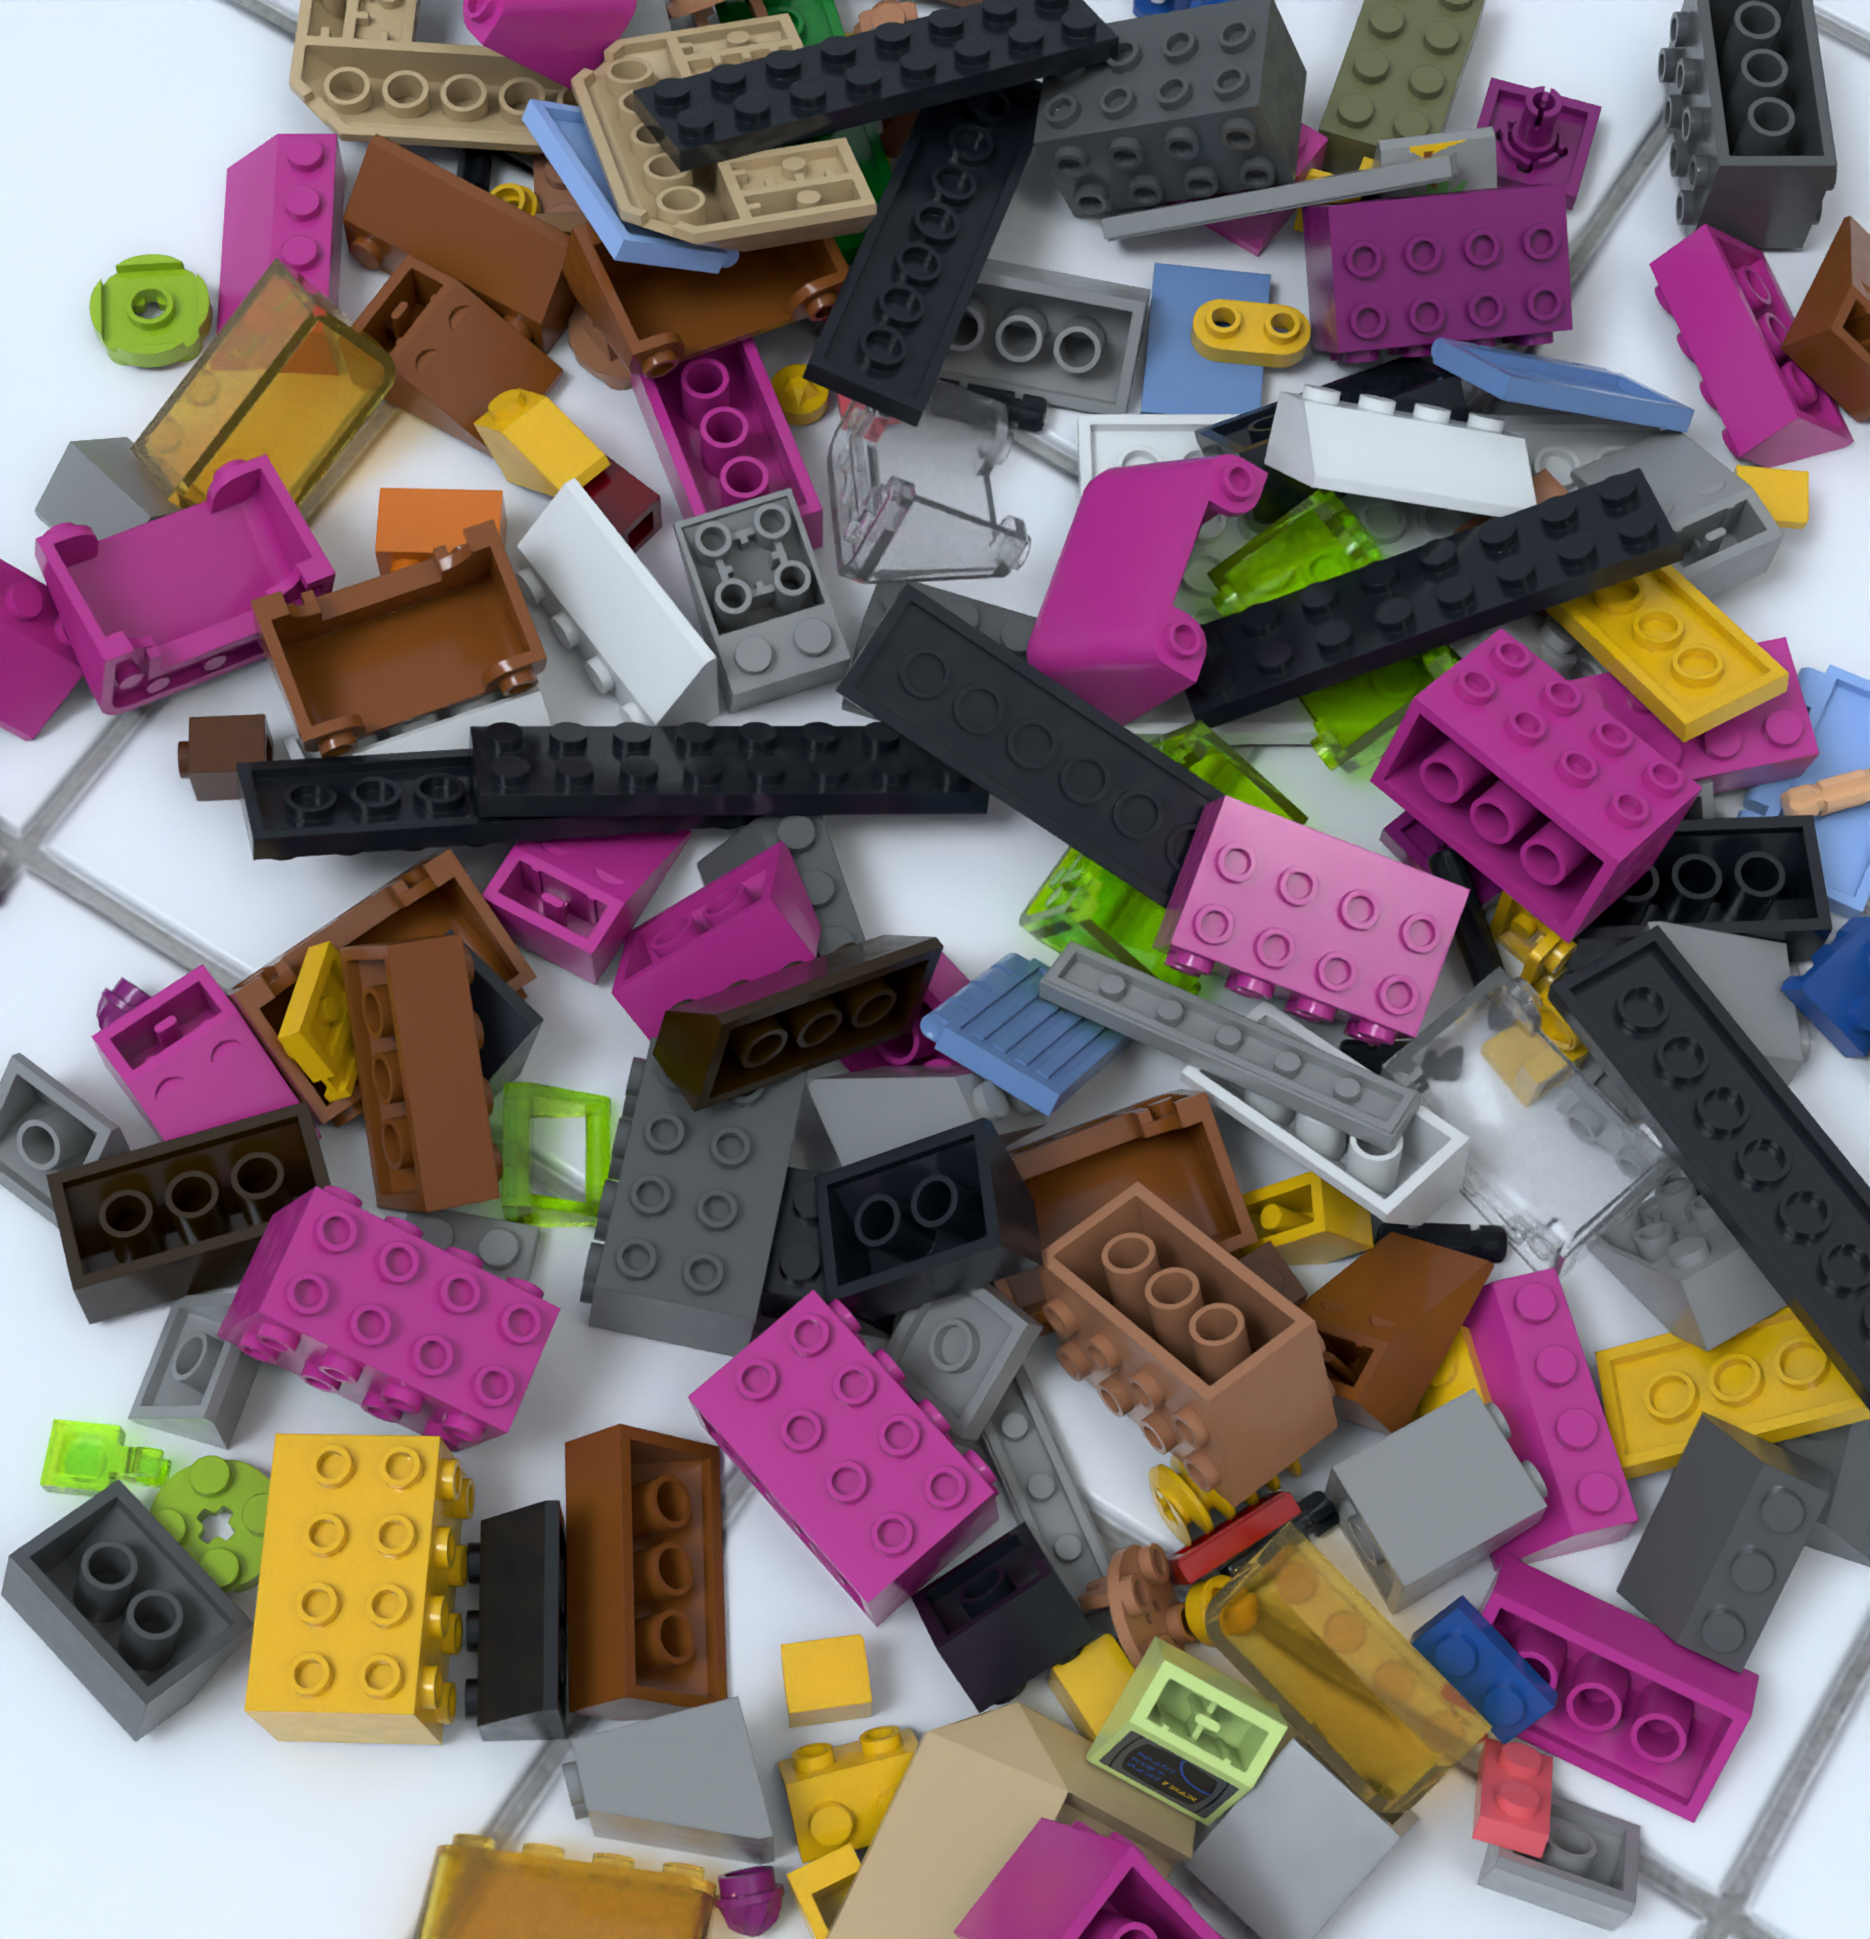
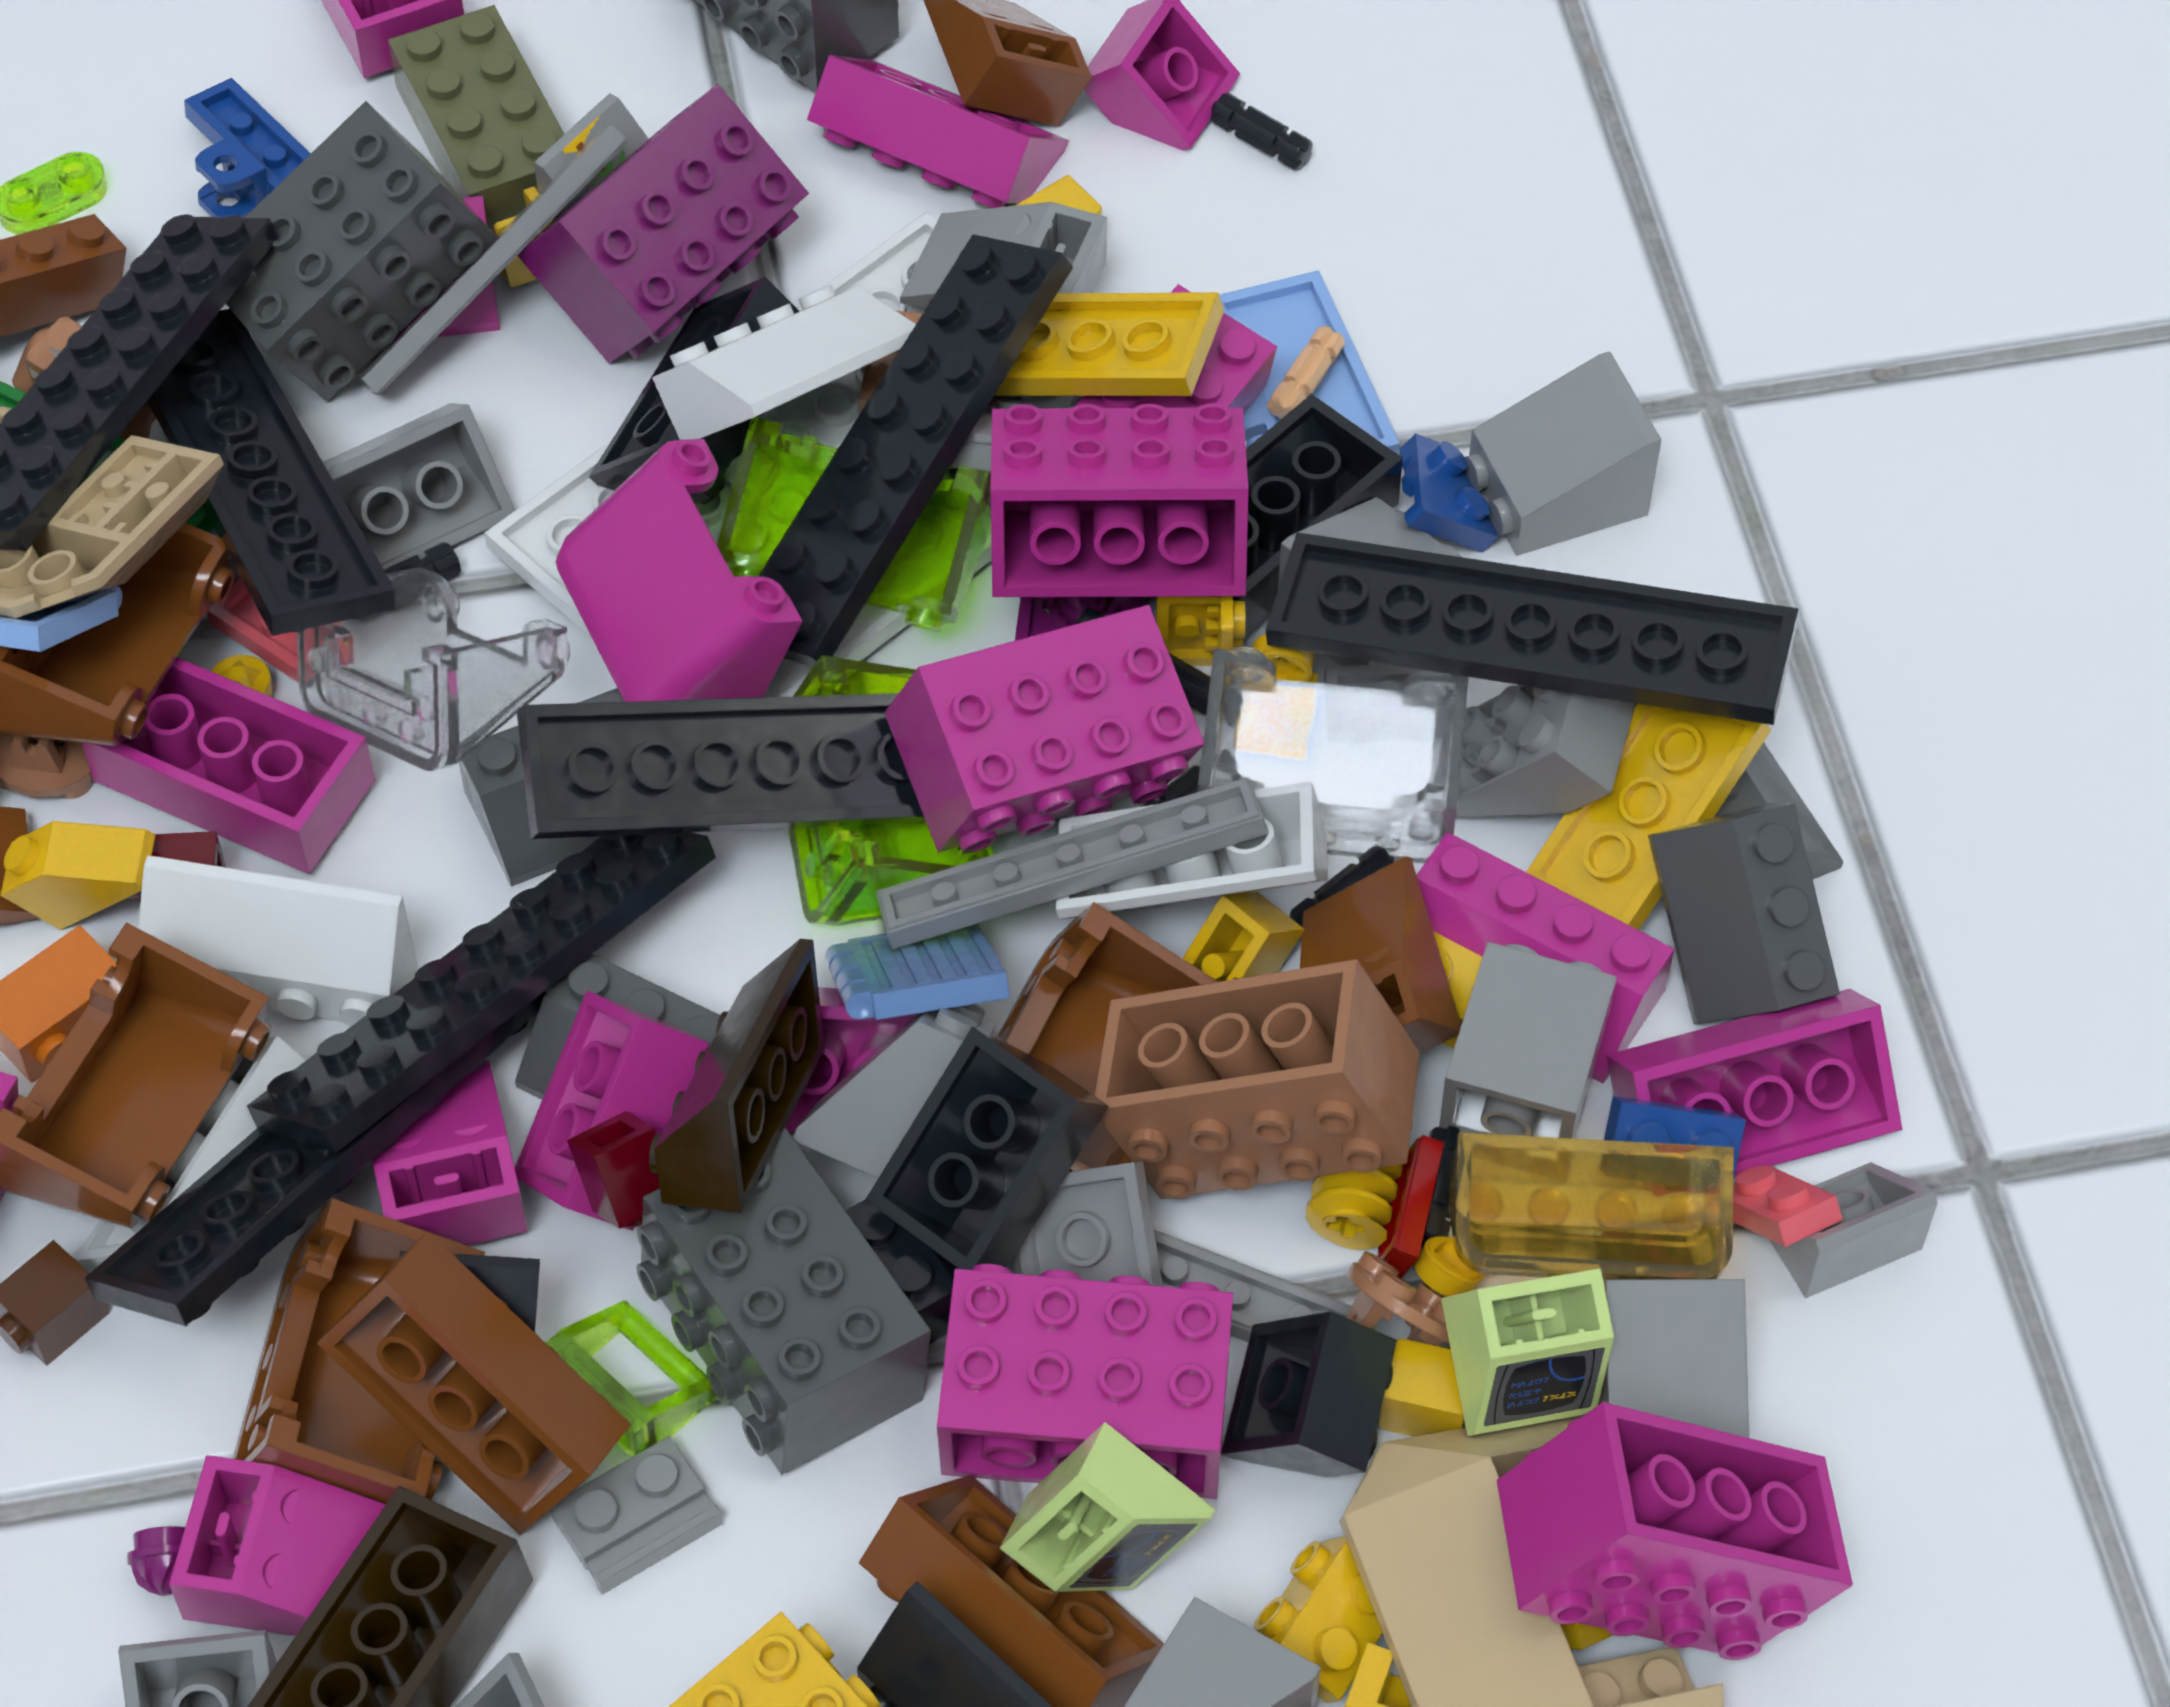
camera: 40 degrees left, 10 degrees down
(318, 1023) = (352, 1416): yellow plate -> none
(389, 1319) = (643, 1570): dark pink brick -> none
(662, 982) = (616, 1167): none -> dark red brick
(747, 1570) = (1103, 1518): none -> yellowish green slope
(761, 600) = (382, 832): light grey slope -> none
(826, 1680) = (1226, 1557): yellow panel -> none
(1174, 372) = (527, 413): medium blue tile -> none
(1251, 333) = (564, 379): yellow plate -> none
(1537, 130) = (633, 75): magenta plate -> none
(1560, 385) = (837, 237): medium blue hinge -> none

